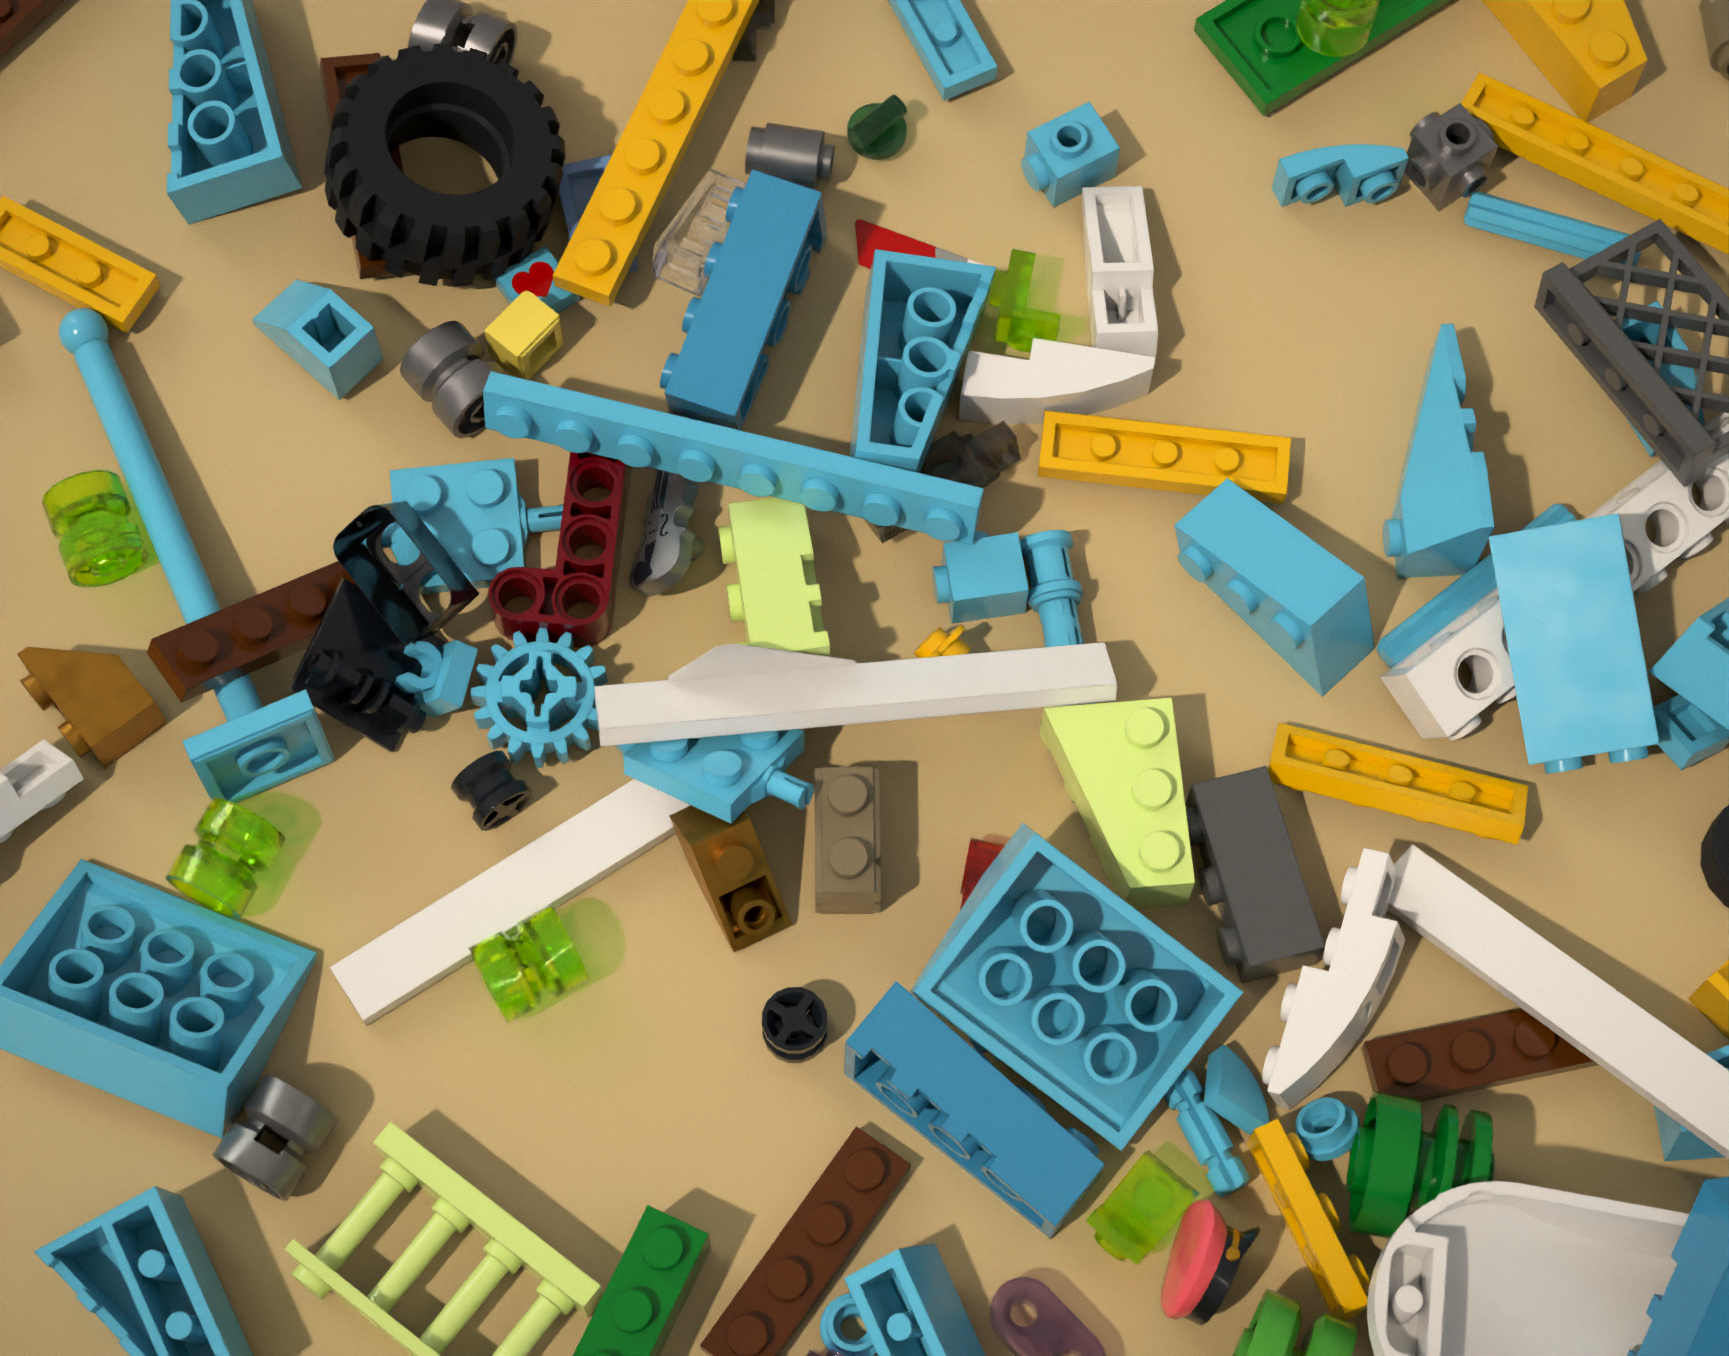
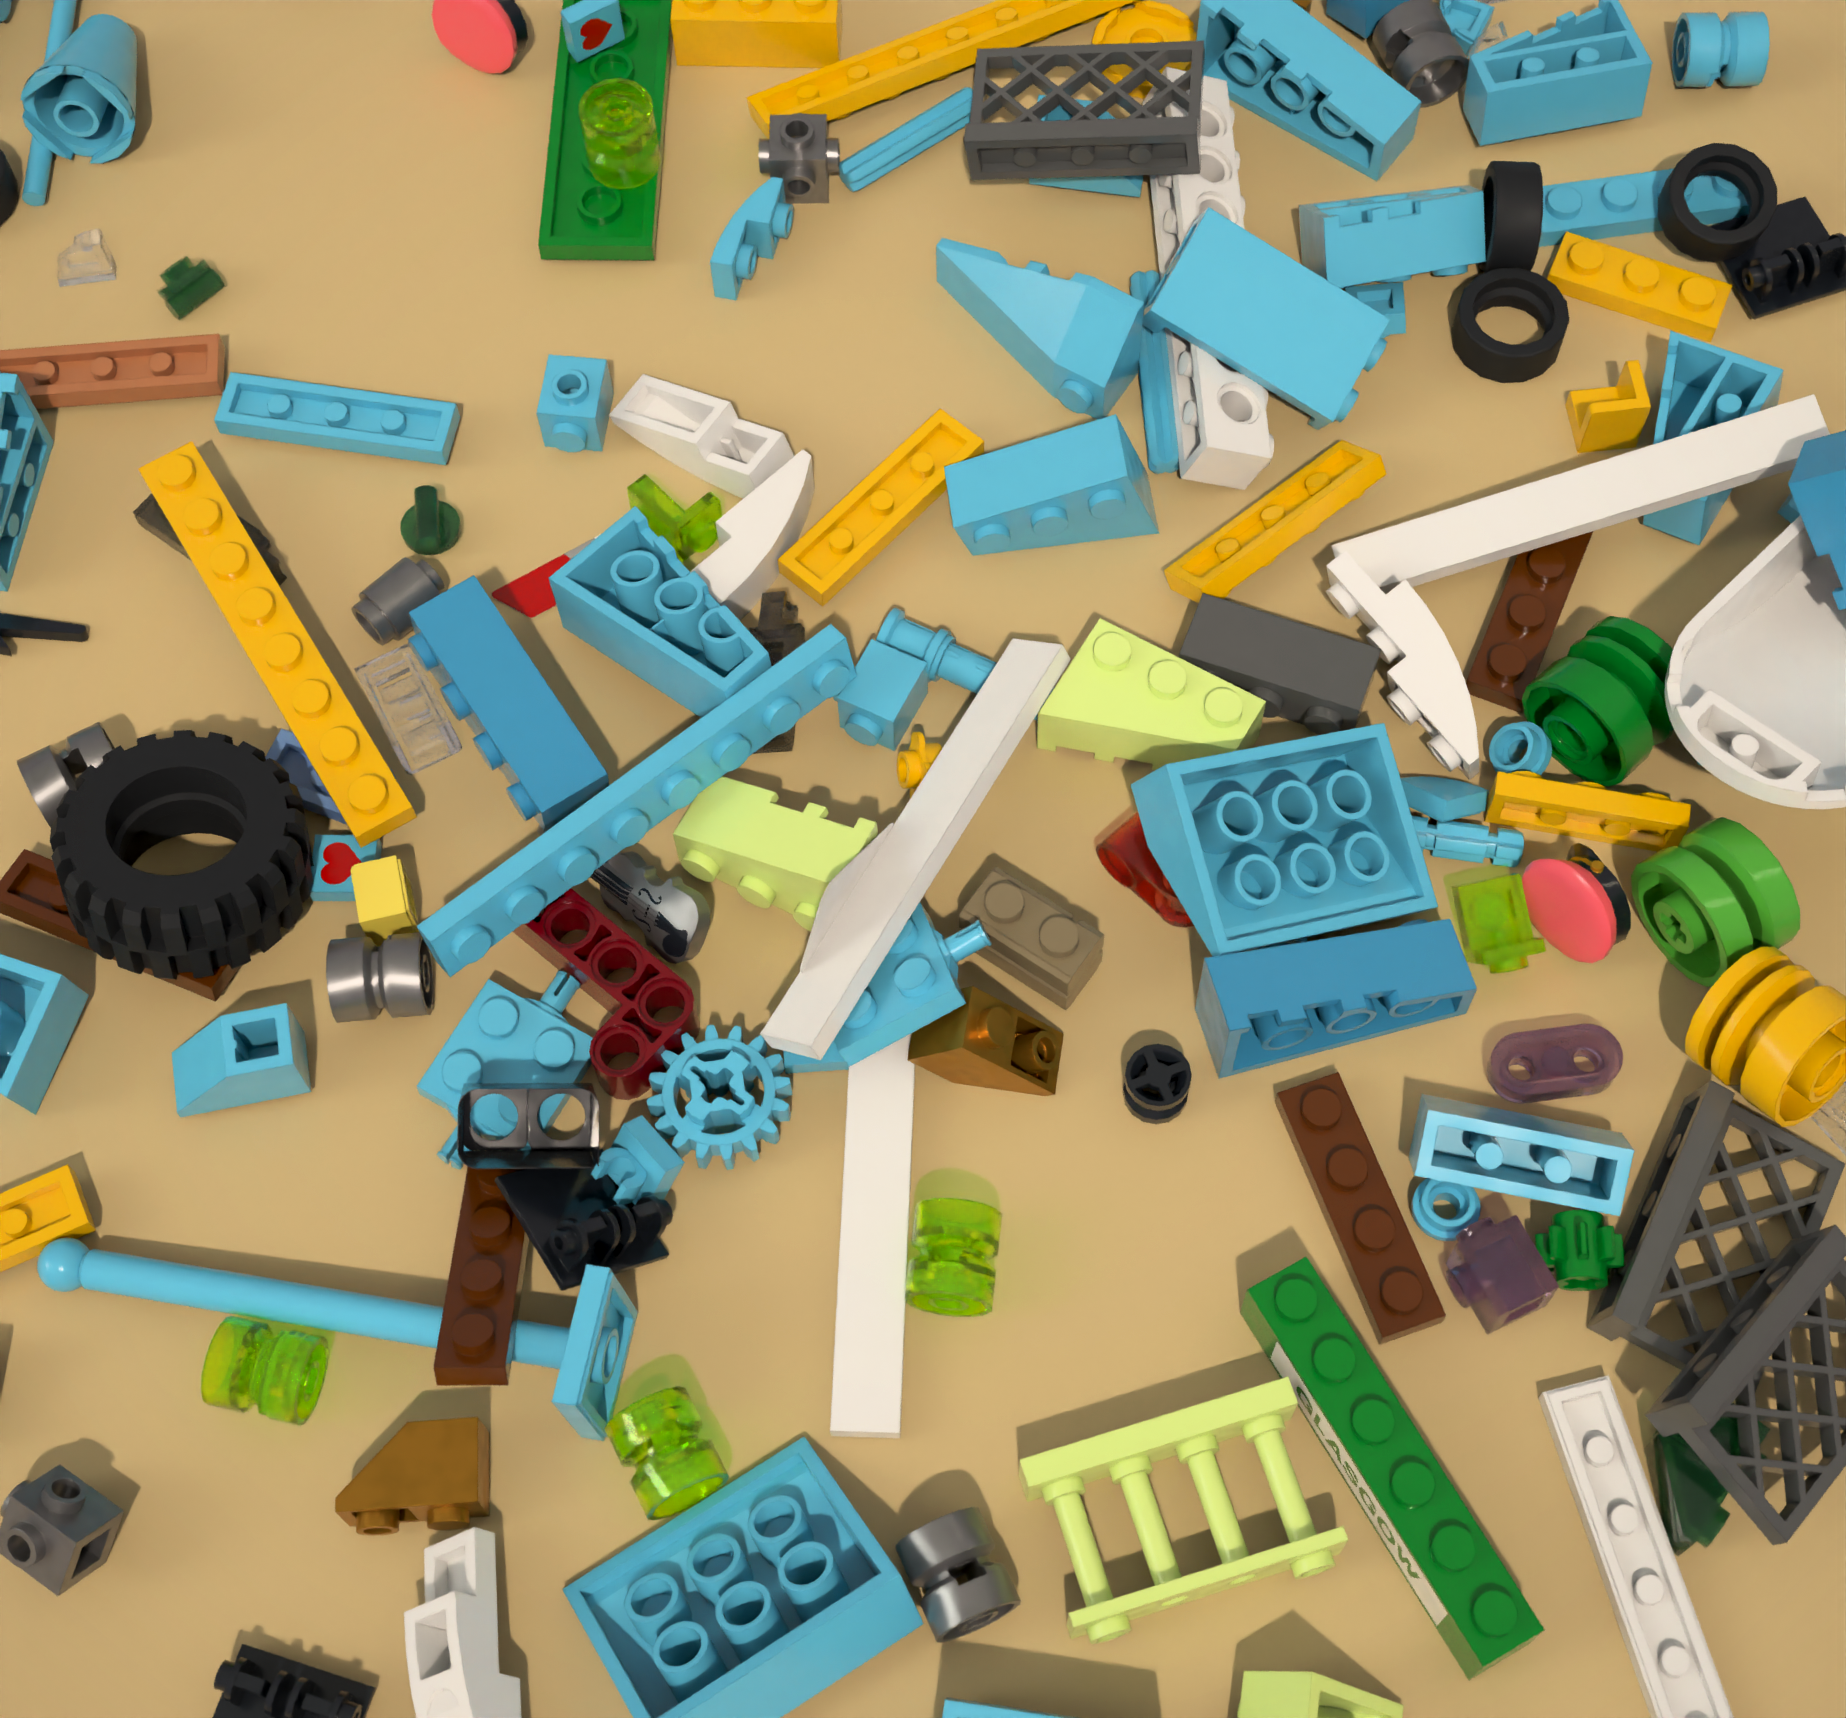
camera: 50 degrees left, 5 degrees down
(491, 790) = (773, 1190): black wheel -> none

